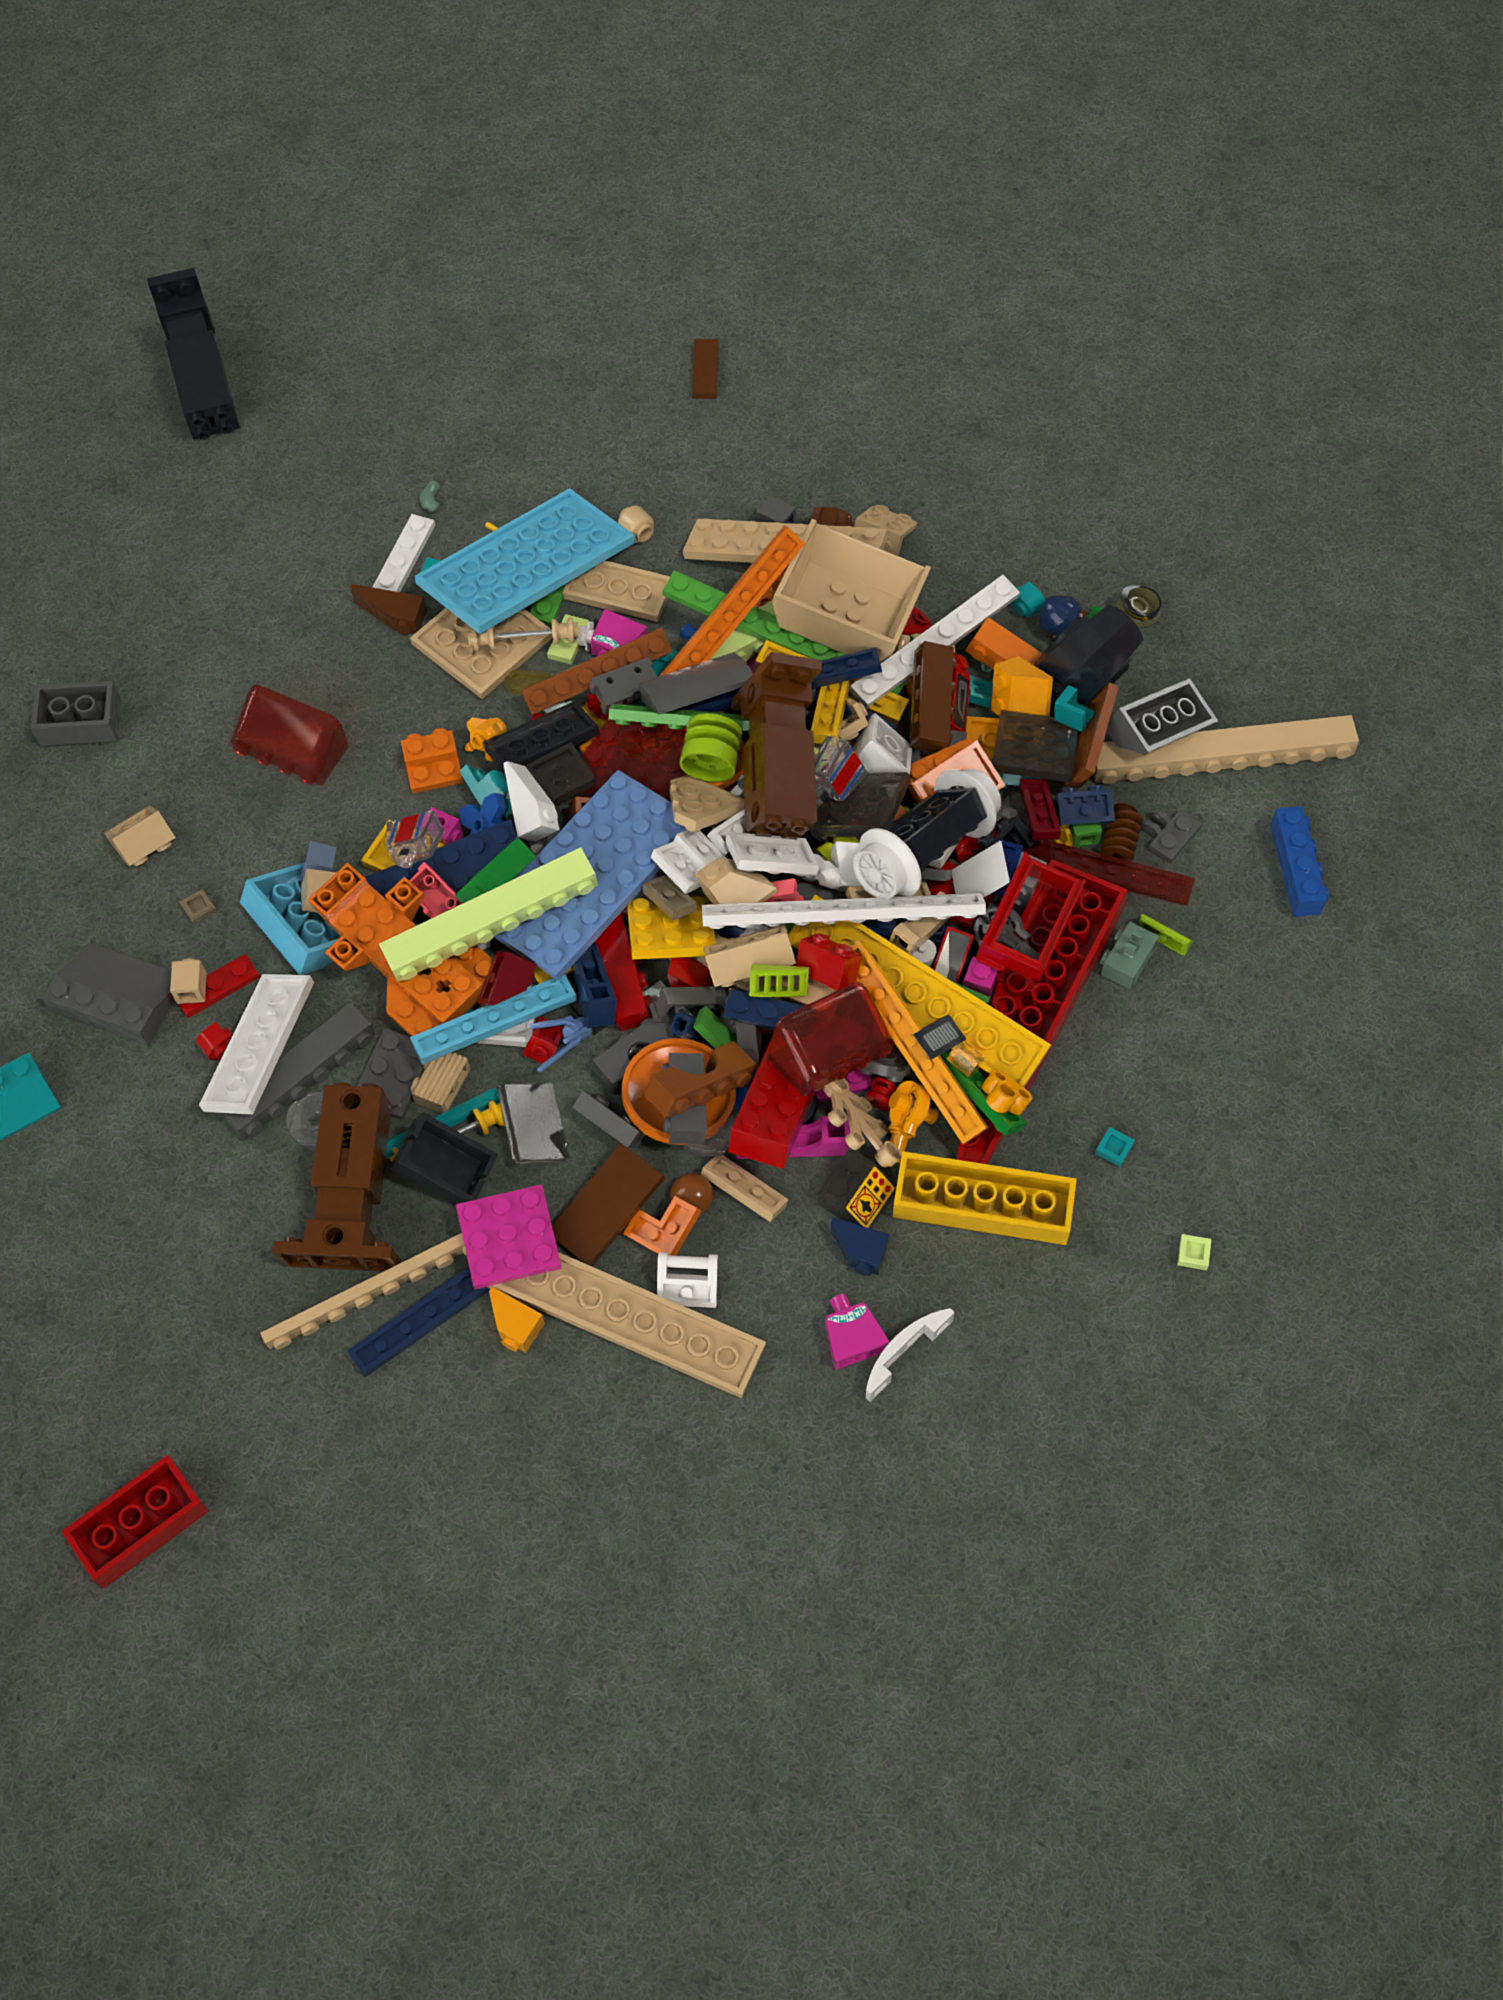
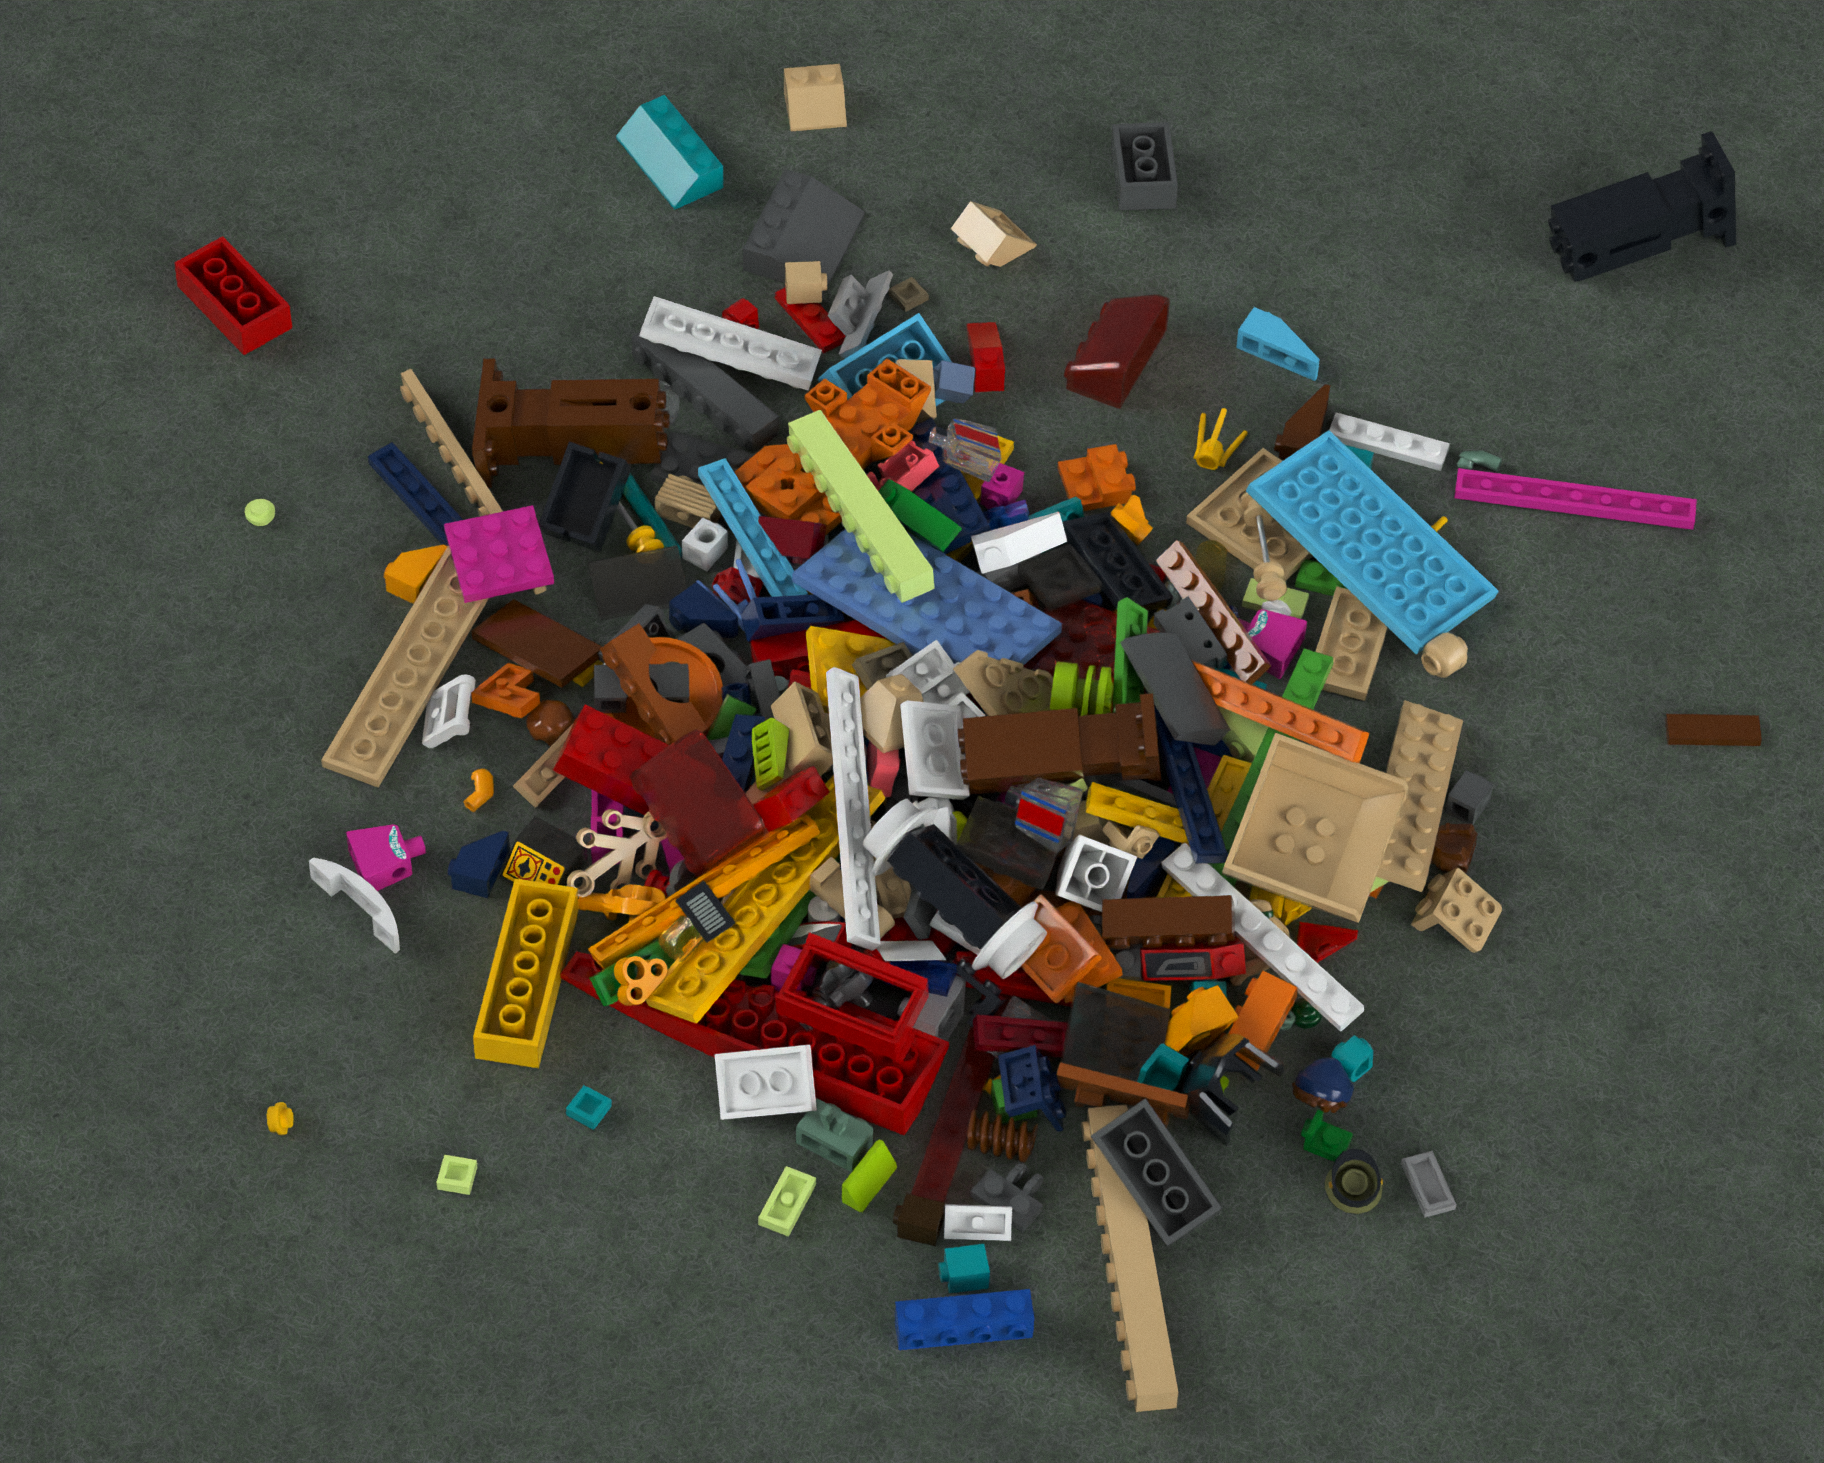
camera: 85 degrees right, 10 degrees down
(223, 939) = (857, 309): none -> light grey bracket
(279, 841) = (986, 356): none -> red slope
(290, 627) = (1275, 342): none -> medium azure slope
(409, 676) = (1211, 453): none -> yellow plant
(423, 1478) = (260, 512): none -> yellowish green plate
(475, 437) = (1575, 498): none -> dark pink plate
(493, 1076) = (705, 544): none -> white brick
(572, 1068) = (698, 607): none -> dark blue slope
(769, 1249) = (483, 789): none -> light orange arm
(1096, 998) = (765, 1082): none -> white plate
(1132, 562) = (1428, 1184): none -> light grey tile
(1149, 1407) = (279, 1118): none -> yellow plate
(1195, 991) = (787, 1201): none -> yellowish green plate
(1203, 853) = (978, 1222): none -> white plate
(1206, 893) = (919, 1219): none -> dark brown brick
(1248, 861) = (965, 1268): none -> teal brick

